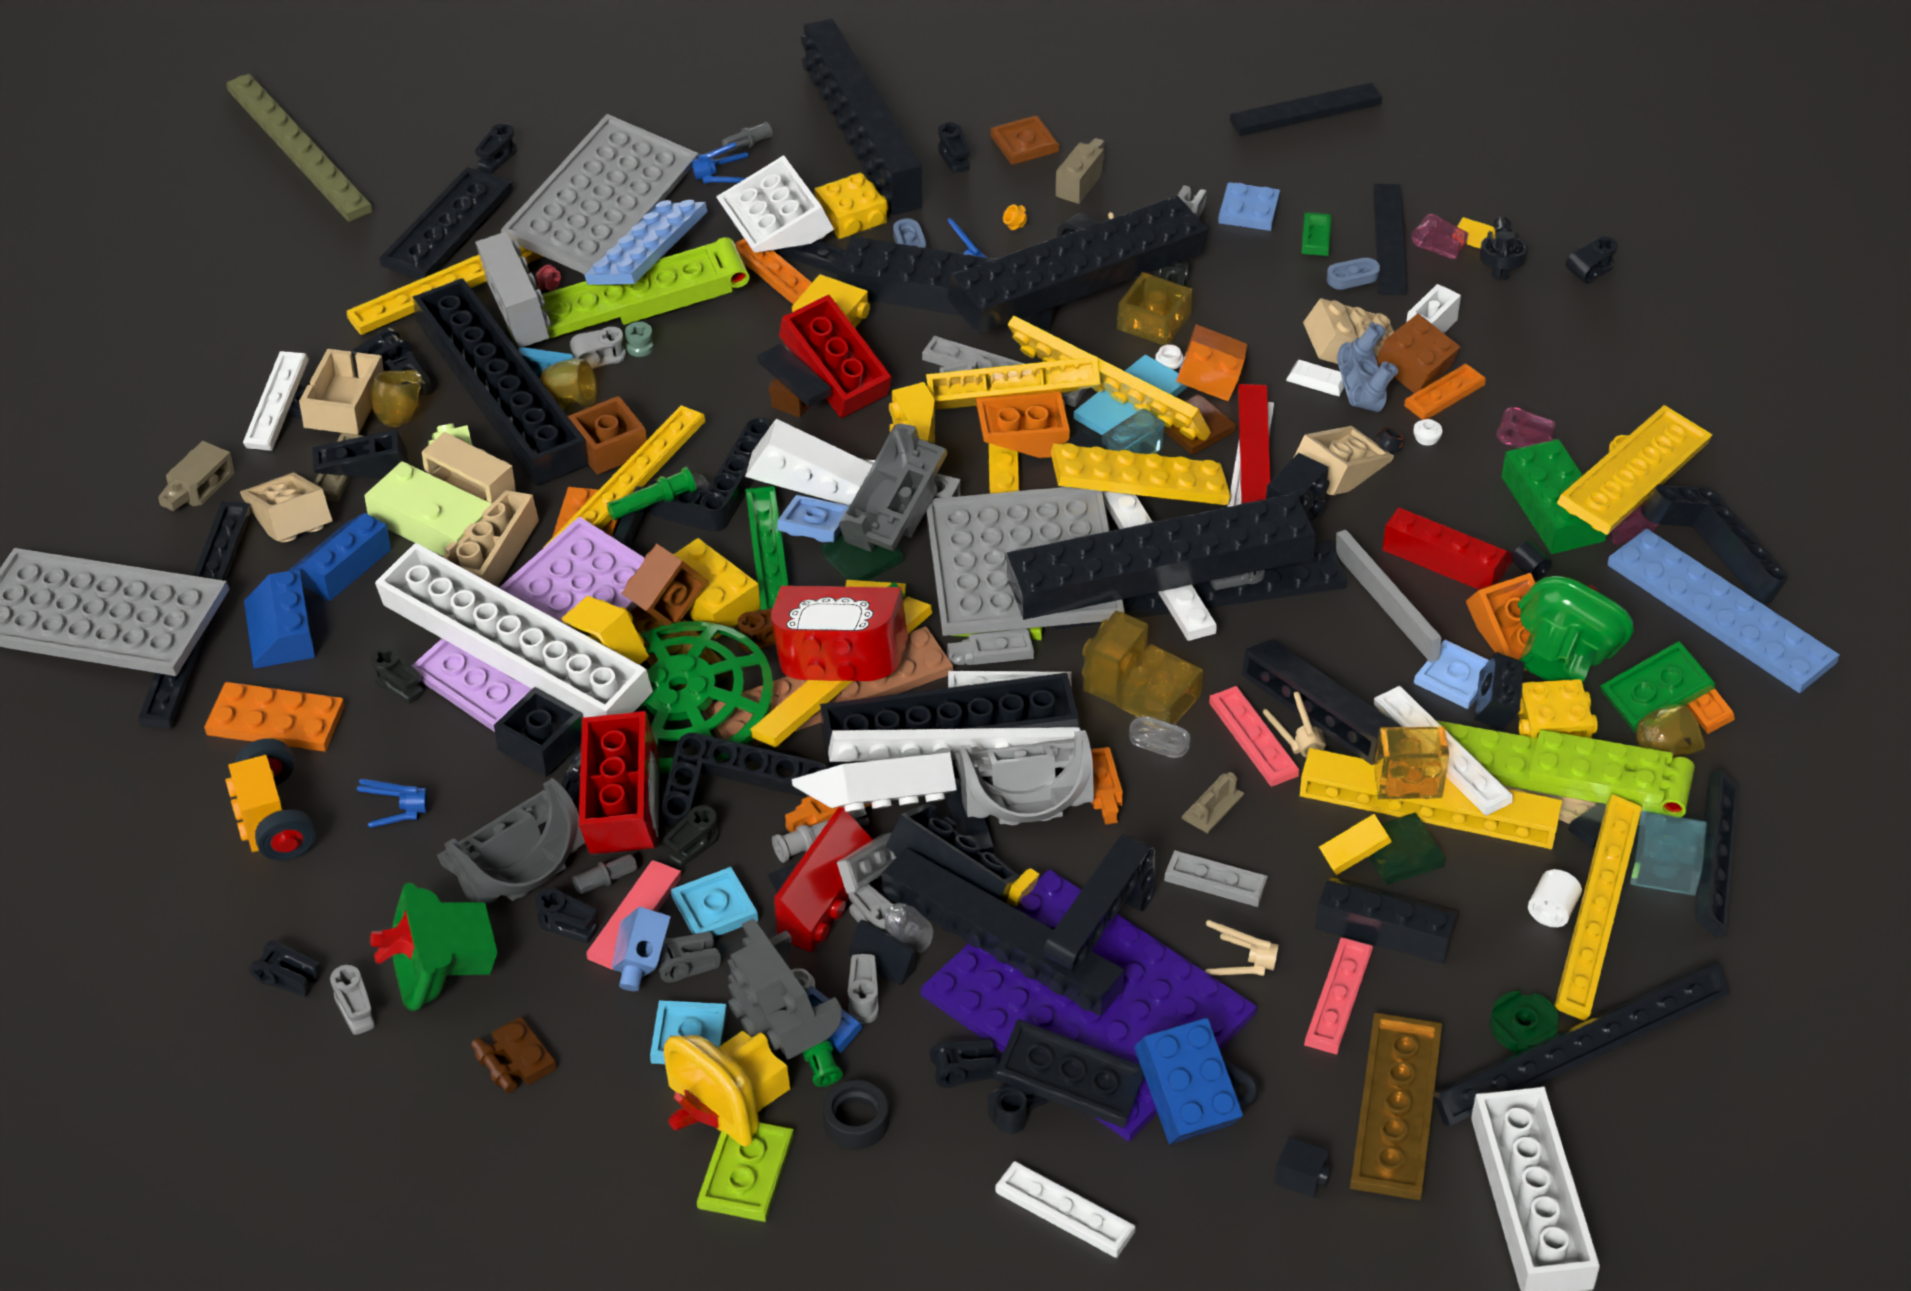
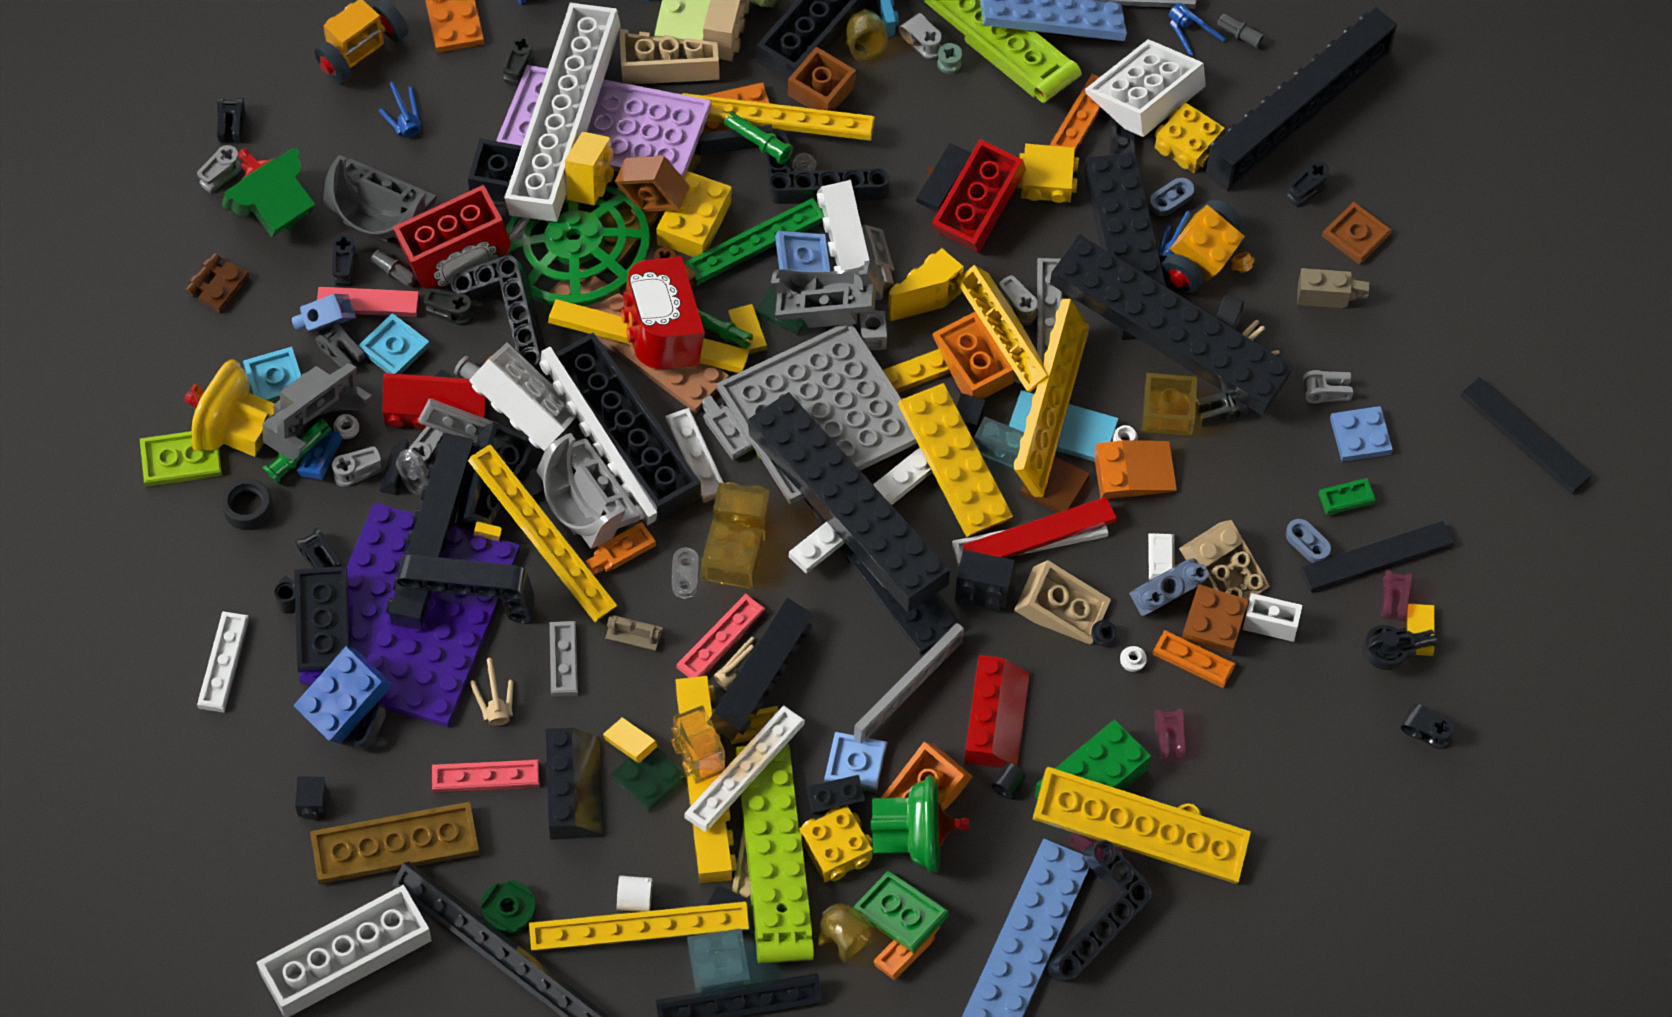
camera: 65 degrees right, 15 degrees up
(988, 219) = (1203, 247): none -> light orange brick
(1057, 828) = (542, 533): none -> yellow plate

